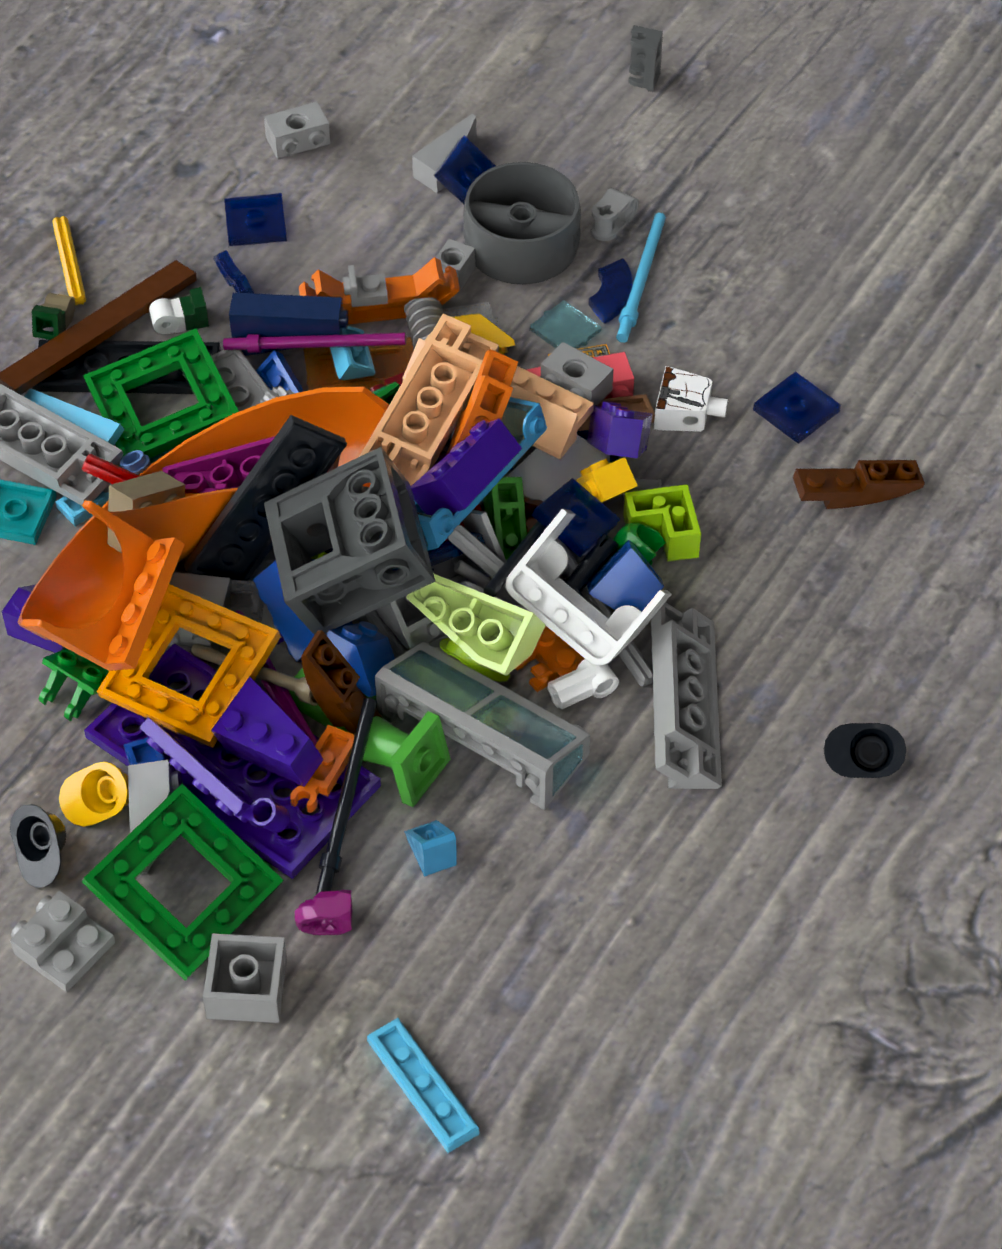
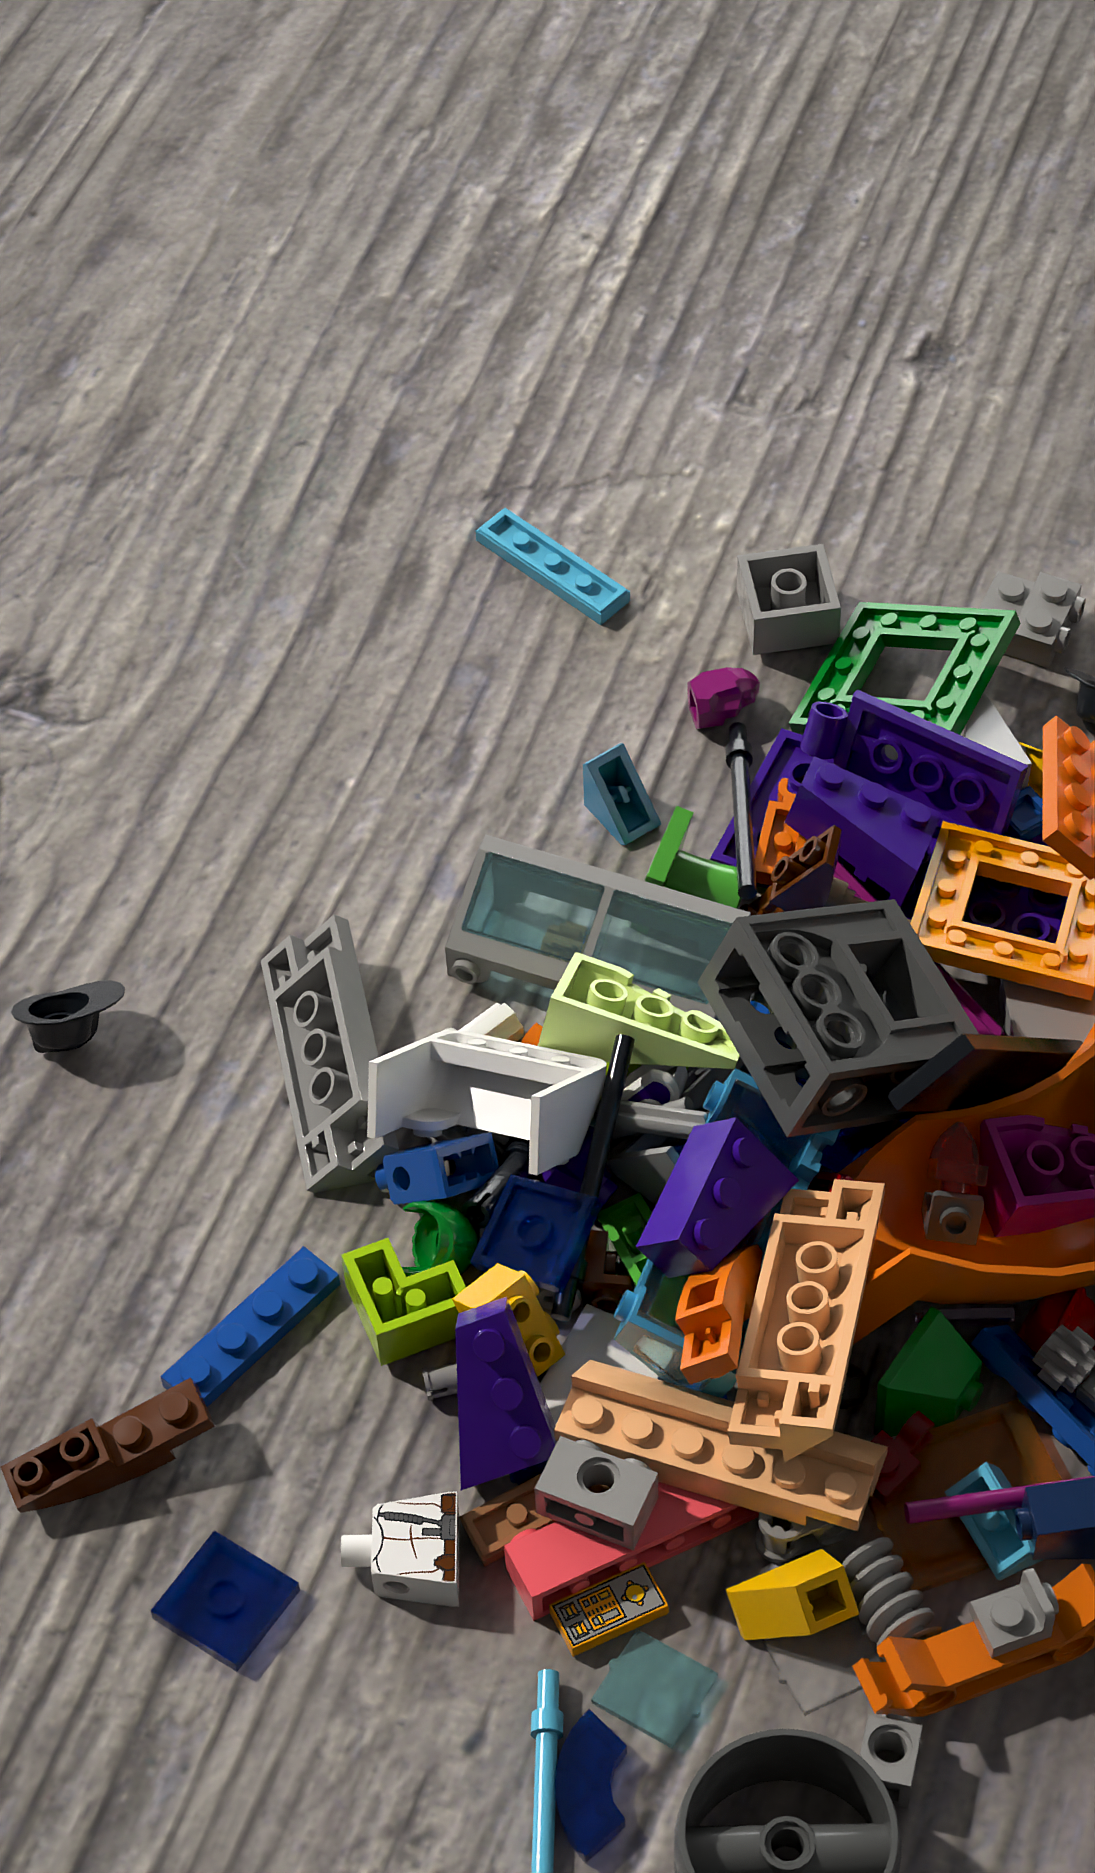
camera: 170 degrees right, 0 degrees up
(761, 543) = (254, 1325): none -> blue plate

